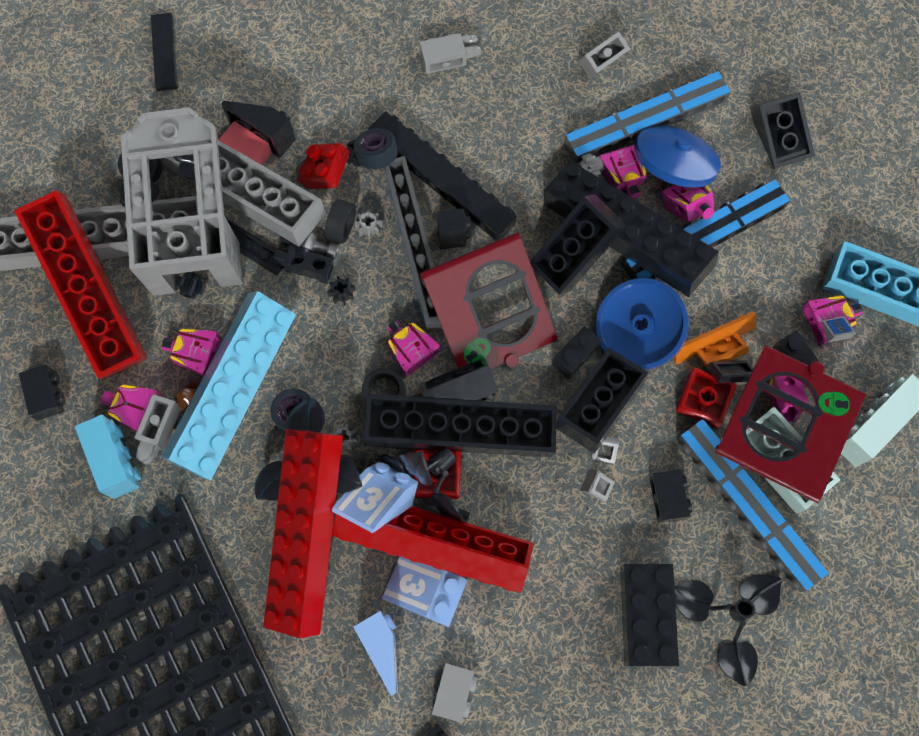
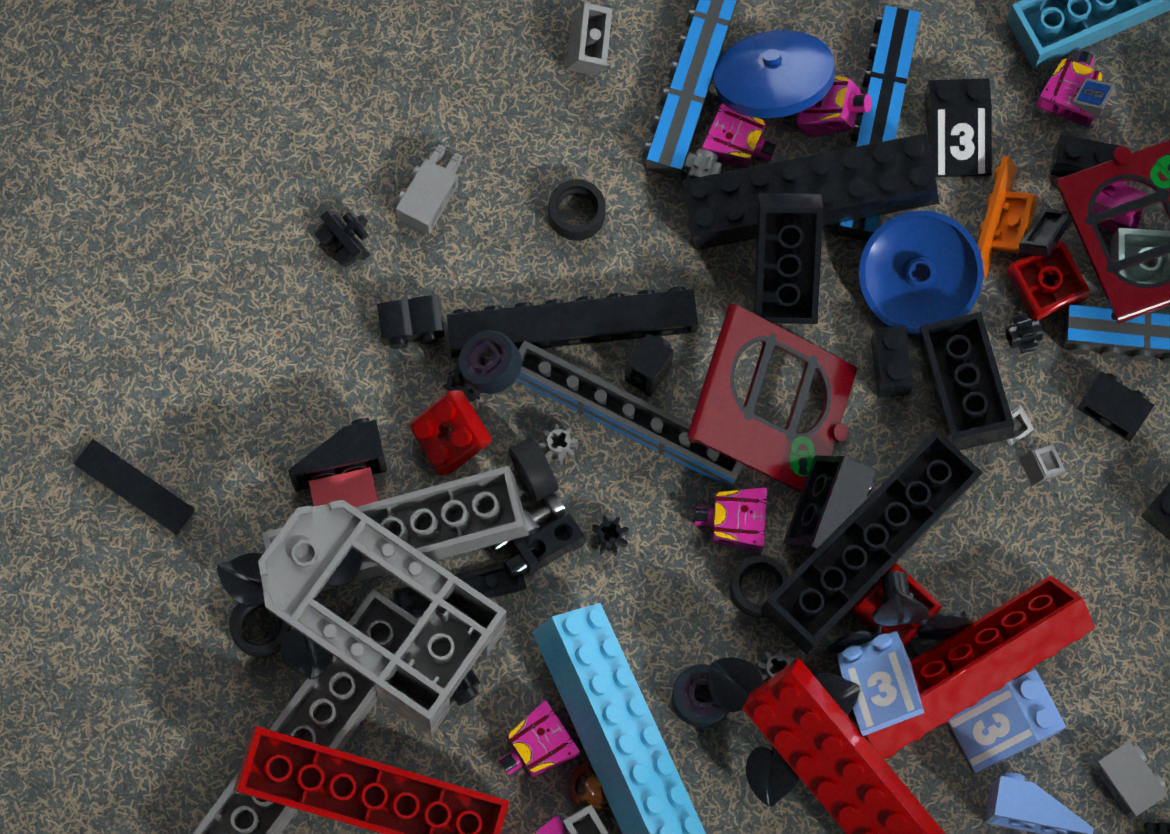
camera: 50 degrees left, 0 degrees up
(368, 99) = (411, 321): none -> black brick
(387, 34) = (335, 228): none -> black hips
(506, 143) = (575, 232): none -> black tyre
(662, 409) = (1023, 333): none -> black gear
(747, 276) = (959, 126): none -> black slope

